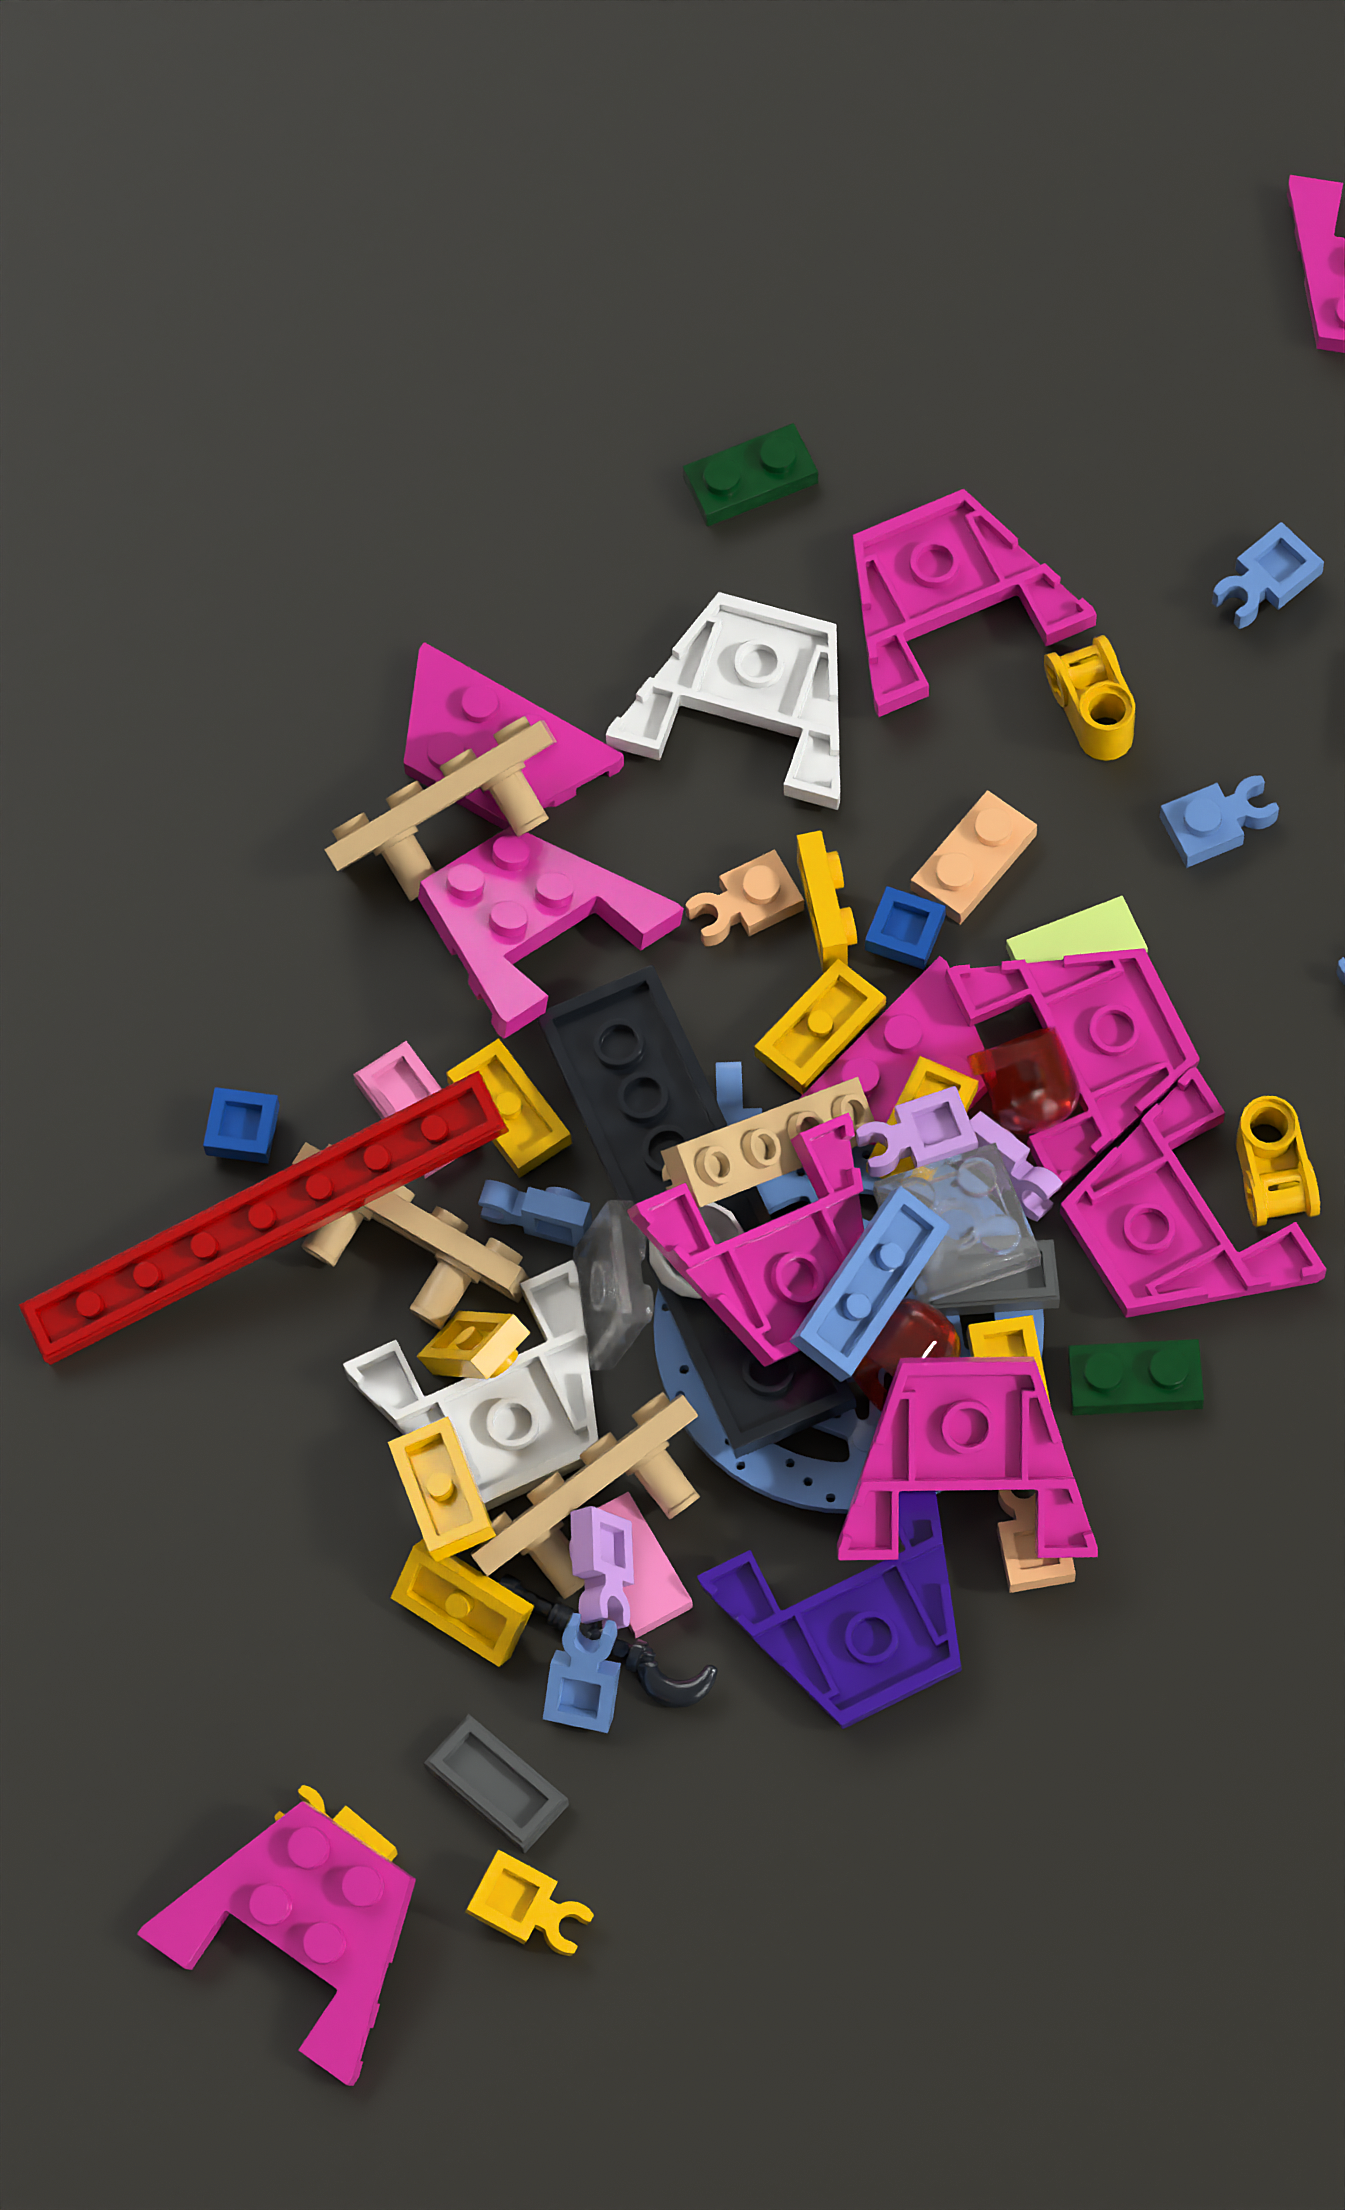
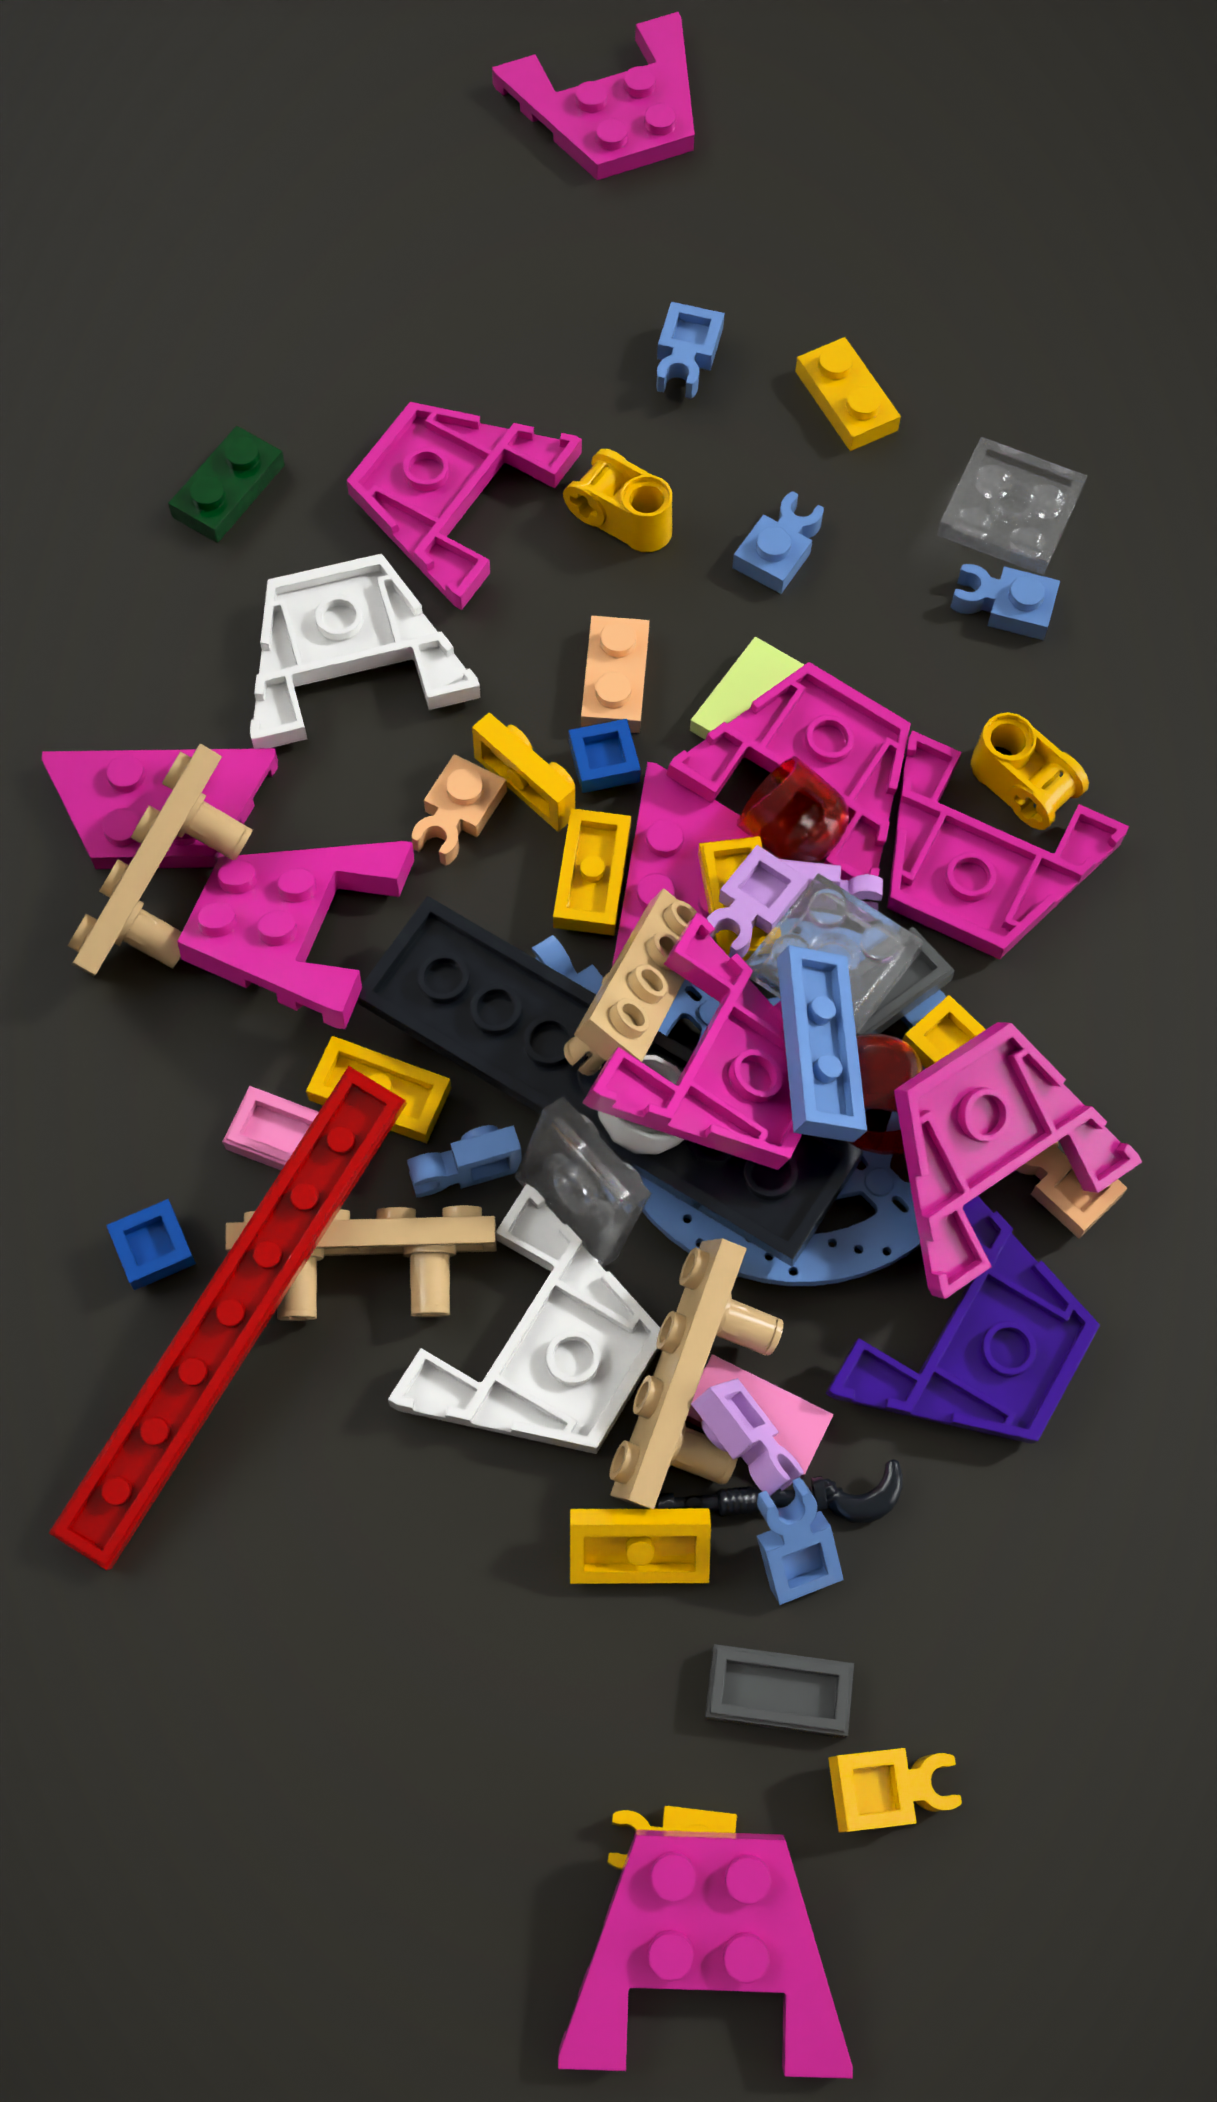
camera: 40 degrees left, 0 degrees up
(441, 1489) = (562, 1456): yellow plate -> none
(474, 1345) = (498, 1309): yellow plate -> none
(1135, 1377) = (1047, 996): dark green plate -> none

